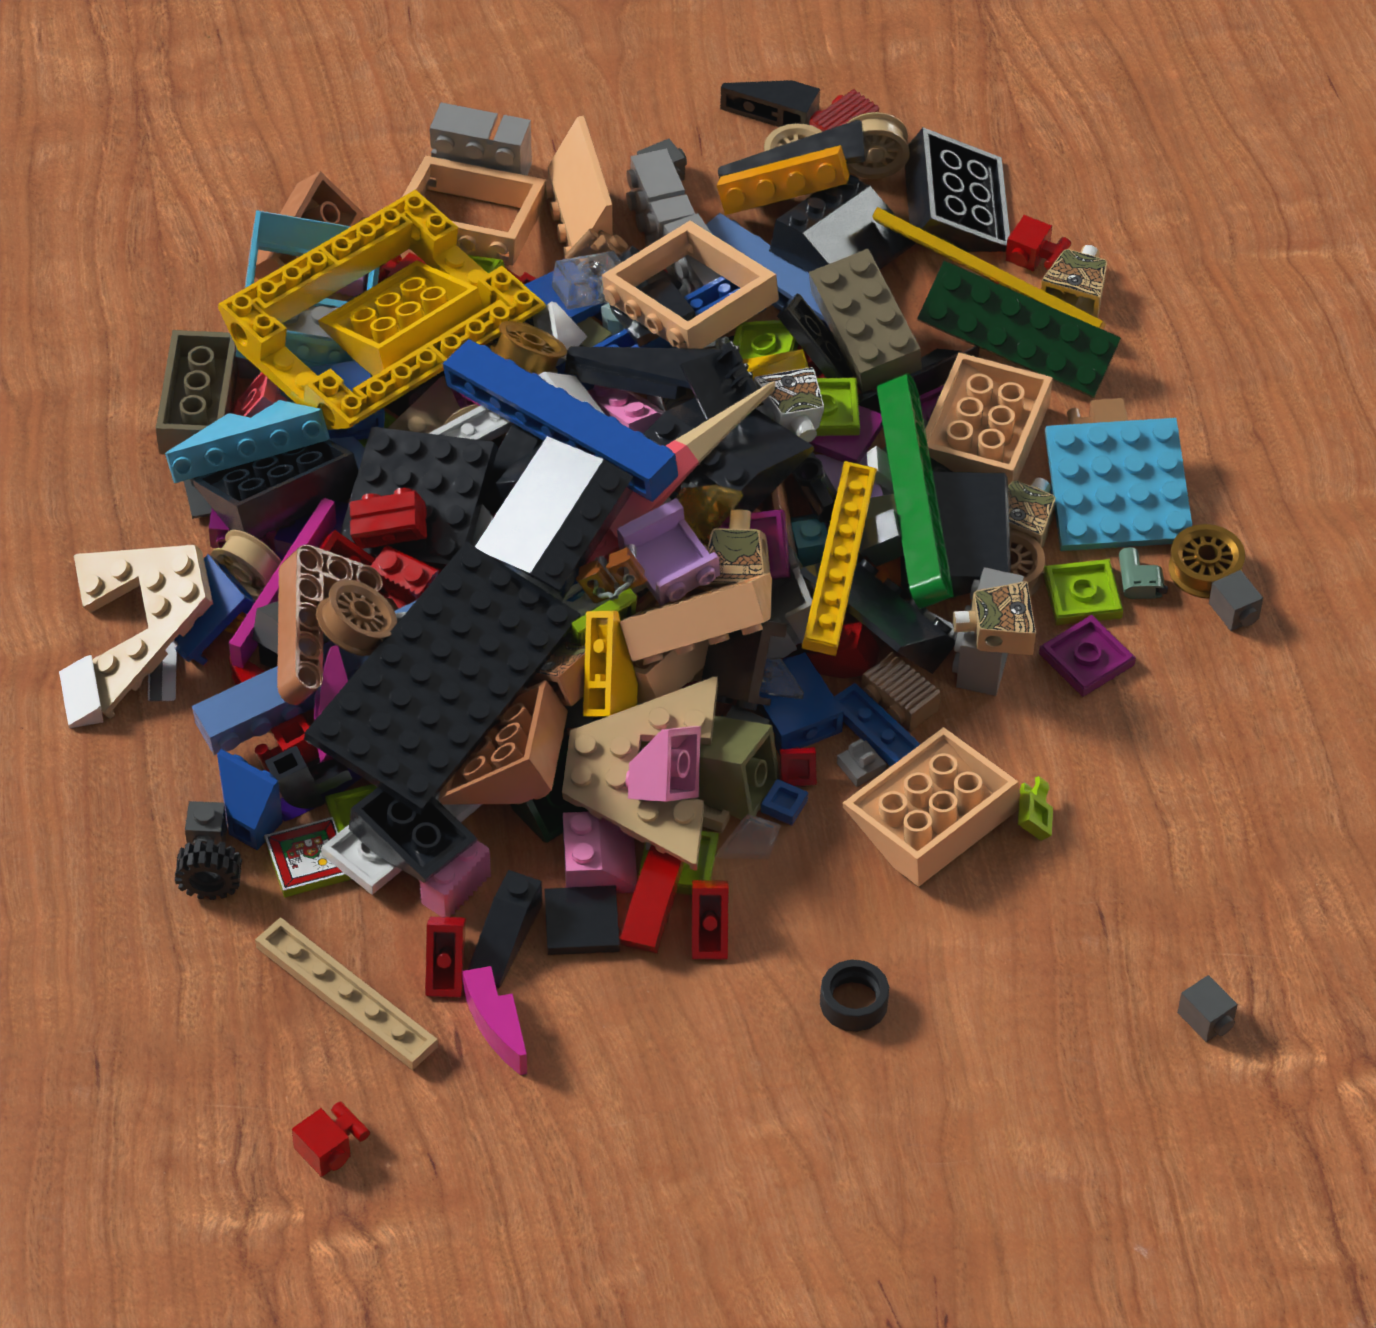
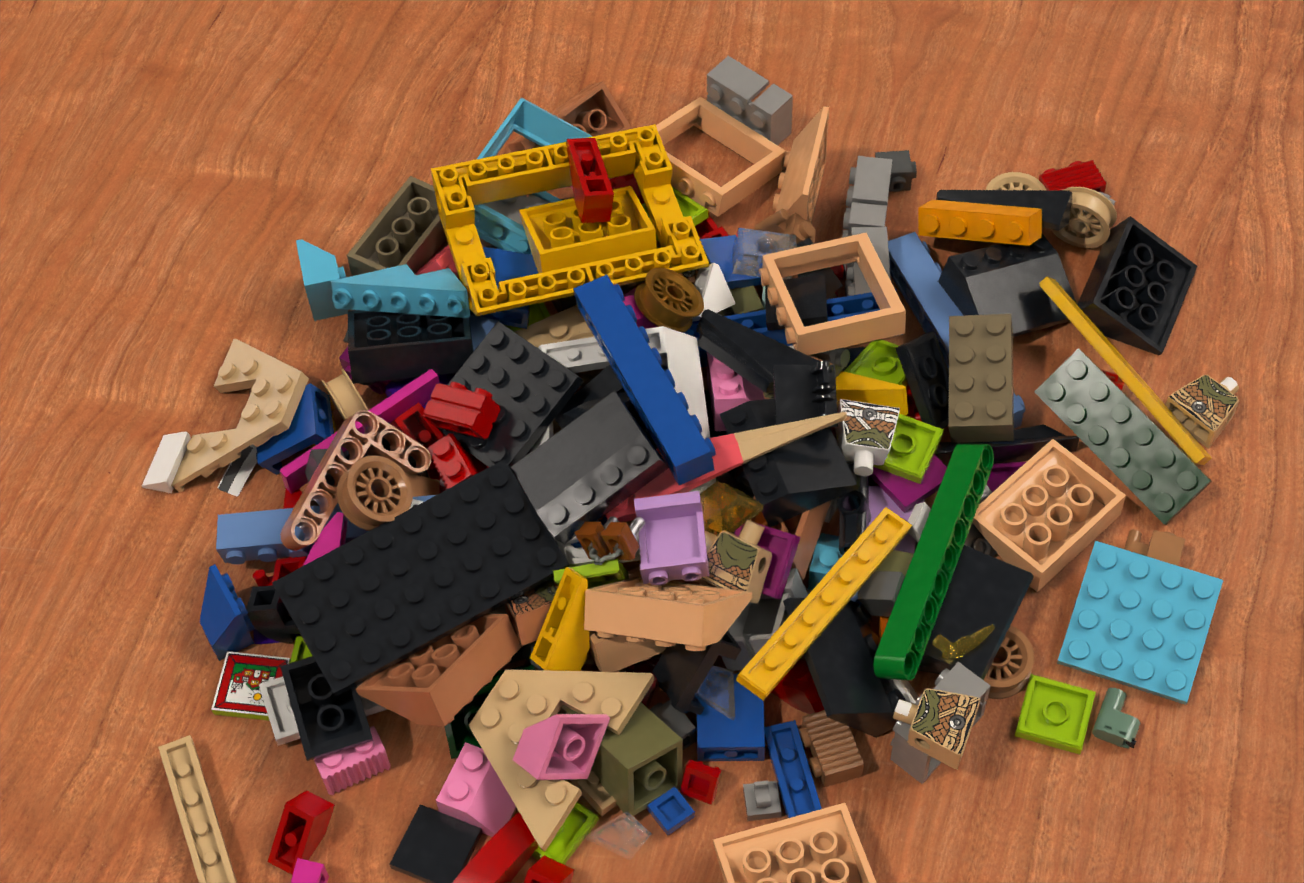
camera: 30 degrees right, 5 degrees up
(138, 463) = (318, 271): none -> medium azure slope
(206, 822) = (180, 626): dark grey brick -> none
(208, 869) = (156, 666): black tyre -> none
(390, 264) = (589, 181): none -> red slope
(507, 924) = (365, 828): black slope -> none
(771, 101) = (1019, 147): black slope -> none
(979, 554) = (963, 645): none -> clear yellow bar
(1031, 508) = (1044, 615): torso -> none
(1032, 242) = (1182, 356): red brick -> none
(1087, 655) = (1026, 780): magenta tile -> none
(1204, 556) = (1203, 745): pearl gold wheel -> none
(1236, 600) = (1194, 785): dark grey brick -> none

